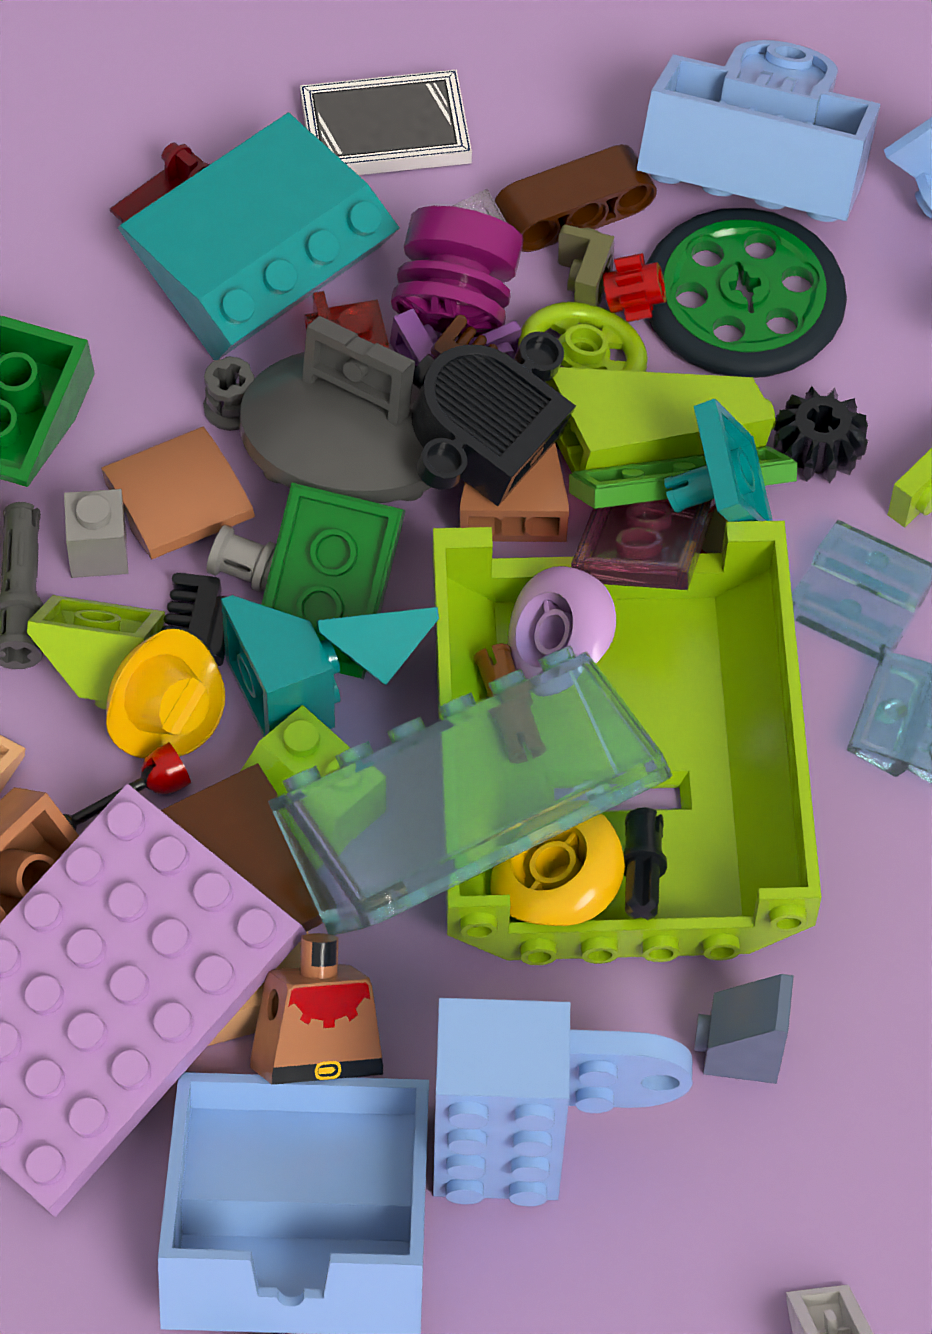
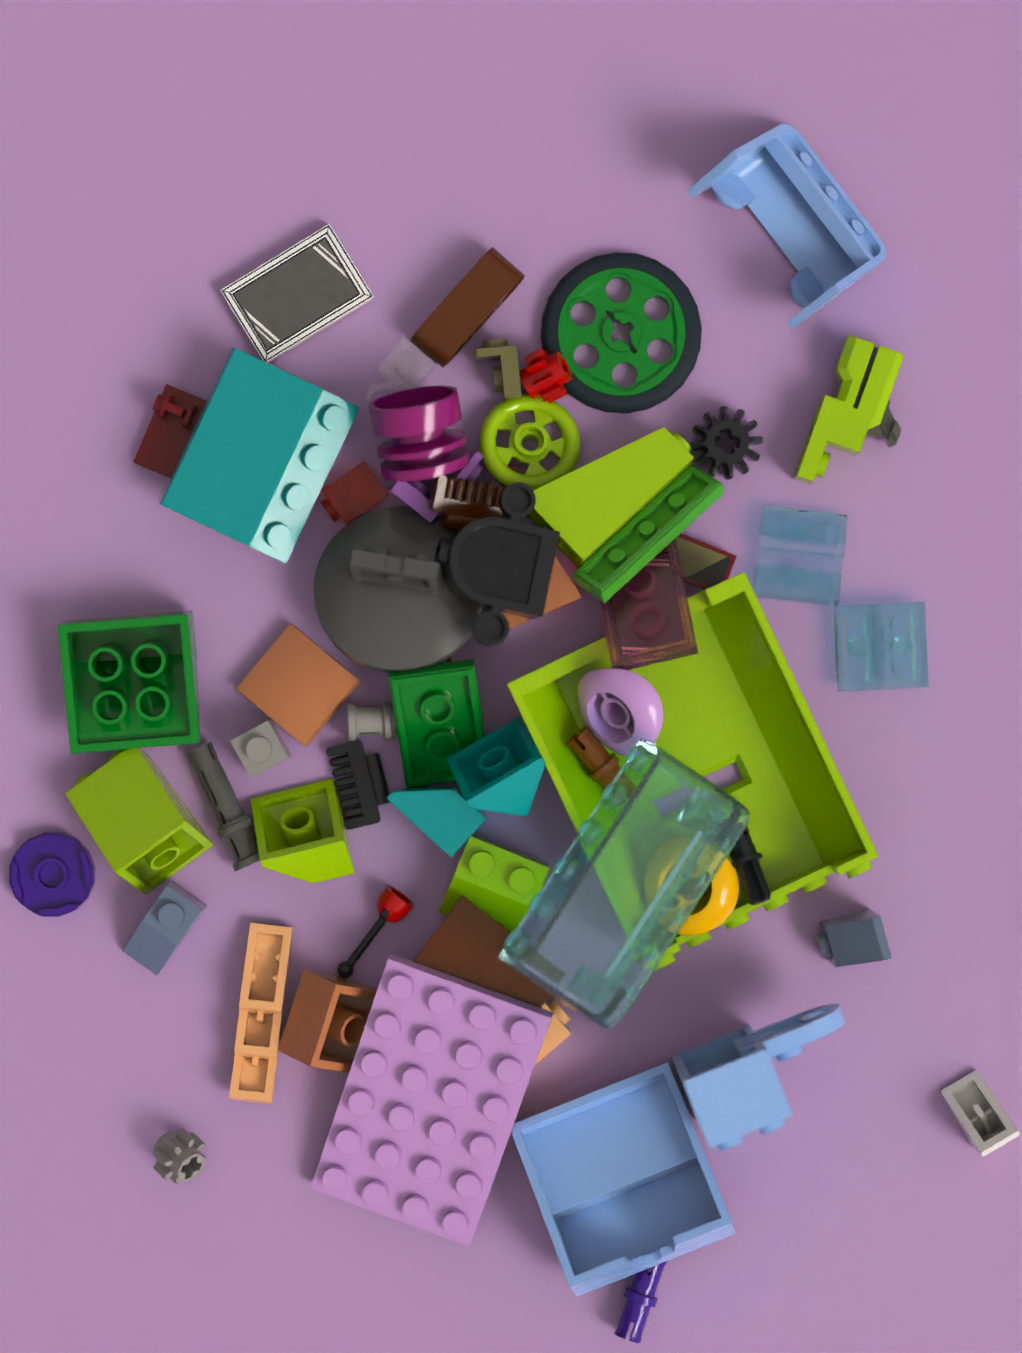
camera: 25 degrees left, 30 degrees up
(164, 695) = (373, 860): yellow hat -> none
(222, 386) = (288, 600): dark grey bush -> none
(316, 1019) = (582, 1063): nougat torso -> none
(731, 470) = (689, 544): teal tile -> none
(761, 129) = (586, 194): light blue brick -> none

